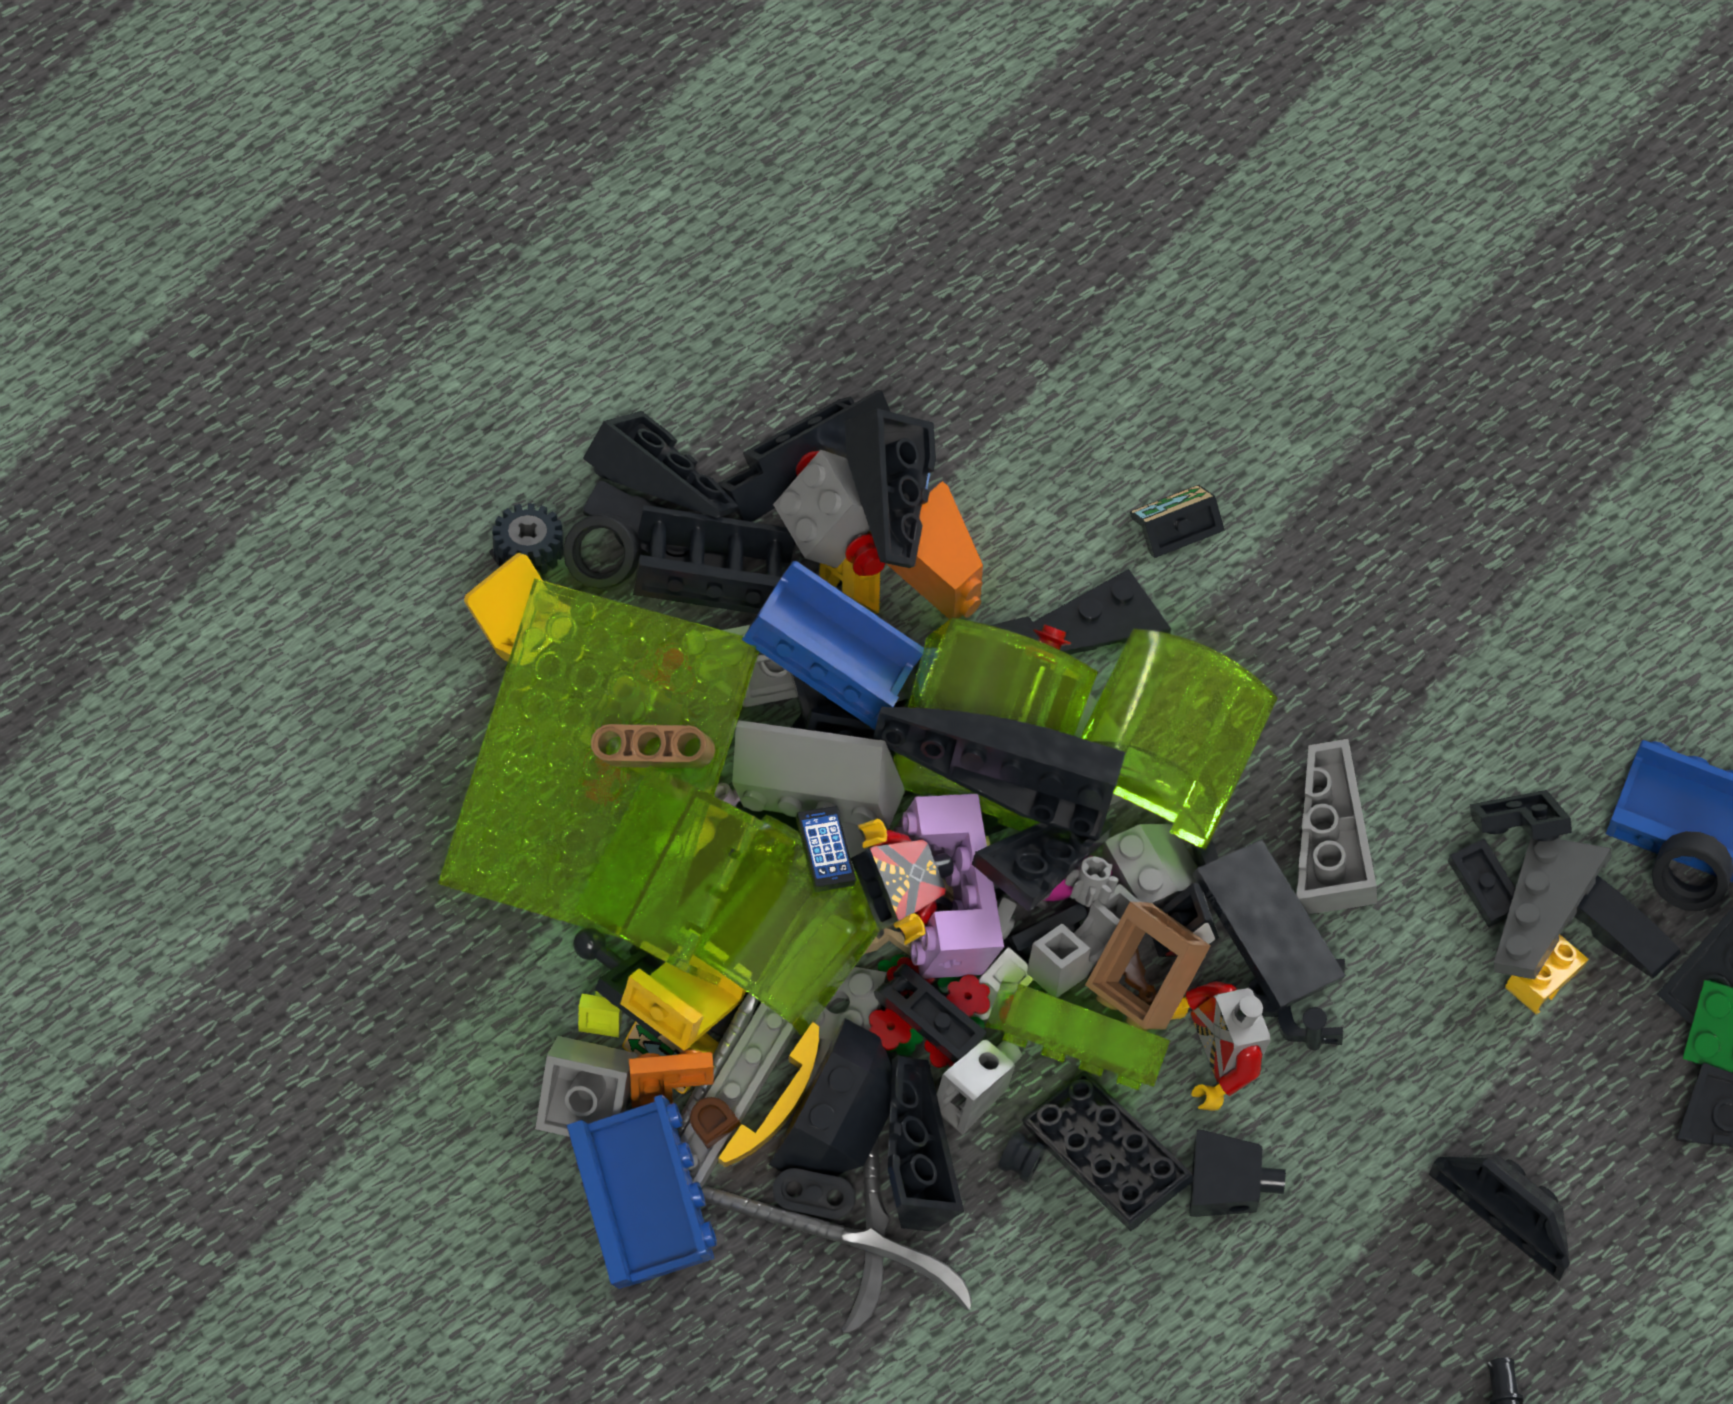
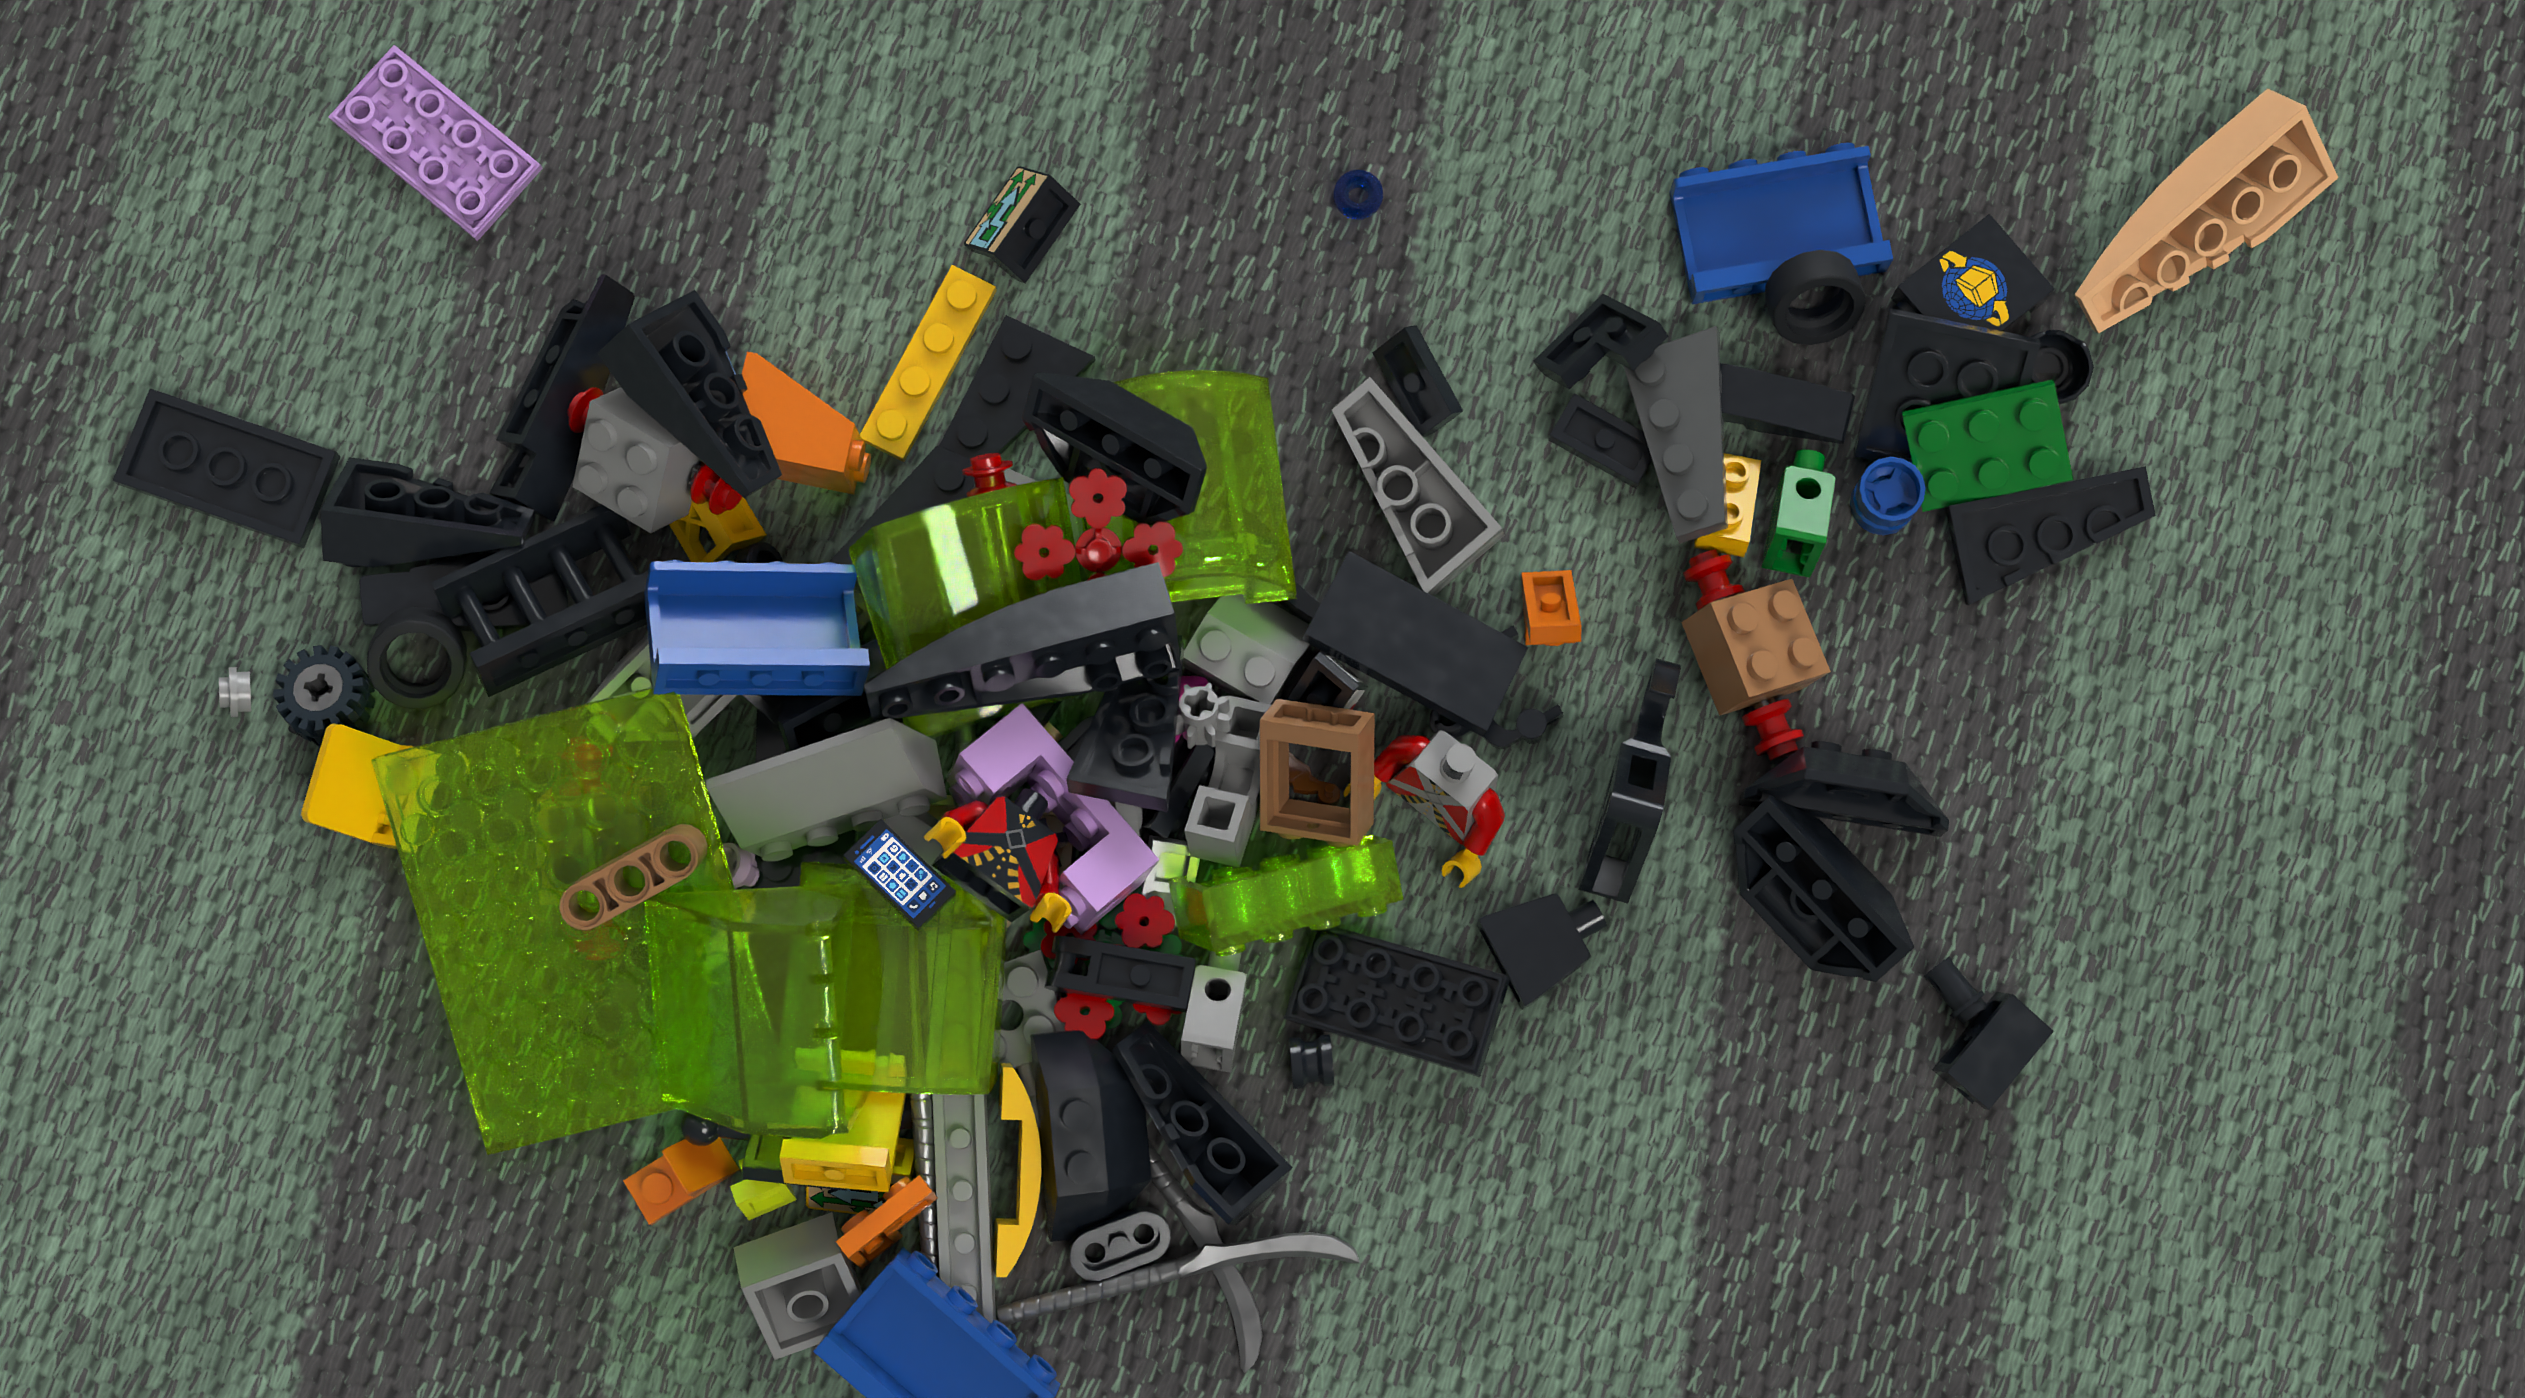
camera: 30 degrees left, 15 degrees up
(472, 506) = (235, 692): none -> light grey plate
(553, 973) = (679, 1177): none -> orange slope
(559, 370) = (226, 468): none -> black plate
(712, 1120) = (963, 1239): reddish brown tile -> none
(826, 255) = (435, 142): none -> lavender tile
(1056, 570) = (927, 363): none -> yellow plate
(1093, 723) = (1097, 547): none -> red plant
(1144, 667) = (1105, 427): none -> black wedge
(1363, 1103) = (1634, 793): none -> black piece
(1376, 968) = (1550, 608): none -> orange slope
(1381, 769) = (1417, 381): none -> black plate
(1421, 621) = (1353, 180): none -> clear blue plate
(1444, 1255) = (1817, 894): none -> black wedge
(1502, 1073) = (1753, 649): none -> medium nougat brick
(1597, 999) = (1800, 514): none -> green torso
(1662, 1030) = (1887, 495): none -> blue wheel

